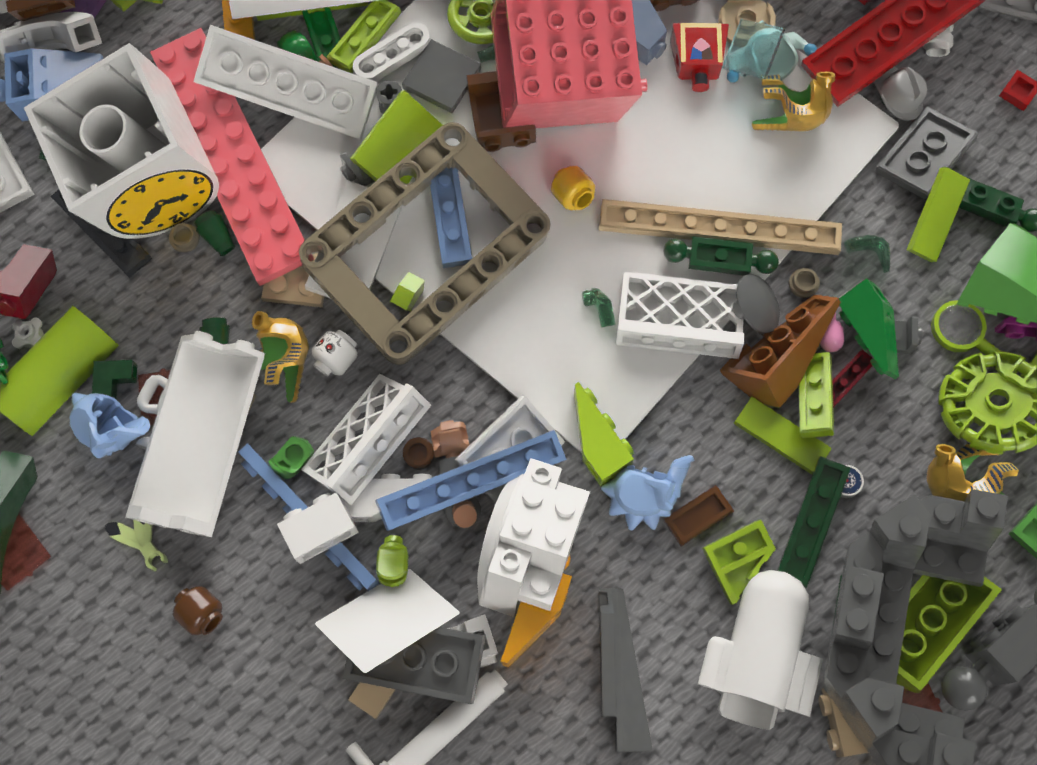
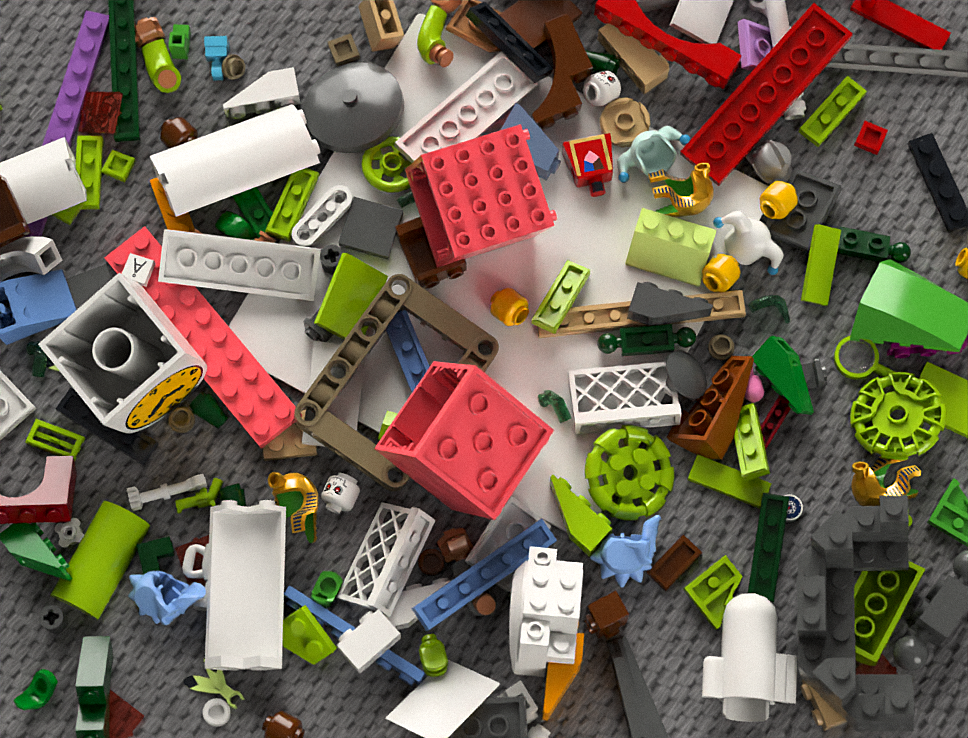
camera: 15 degrees left, 0 degrees up
(61, 243) = (33, 432): none -> lime tile
(110, 312) = (192, 484): none -> white piece
(131, 570) = (216, 712): none -> white tile
(179, 67) = (138, 269): none -> white tile
(180, 326) = (202, 499): none -> lime piece
(251, 505) = (306, 636): none -> lime wing
(483, 316) = (464, 439): none -> coral piece
(604, 560) = (606, 616): none -> reddish brown brick
(633, 189) = (560, 296): none -> lime tile
(685, 395) = (644, 472): none -> lime plate
(743, 220) = (658, 307): none -> dark grey slope
(753, 48) = (636, 153): clear light blue piece -> none
(770, 159) = (670, 247): none -> yellowish green slope
(821, 199) = (721, 273): none -> yellow head
(861, 170) = (749, 240): none -> white piece
(903, 133) = (778, 200): none -> yellow head
(981, 54) = (832, 111): none -> lime plate

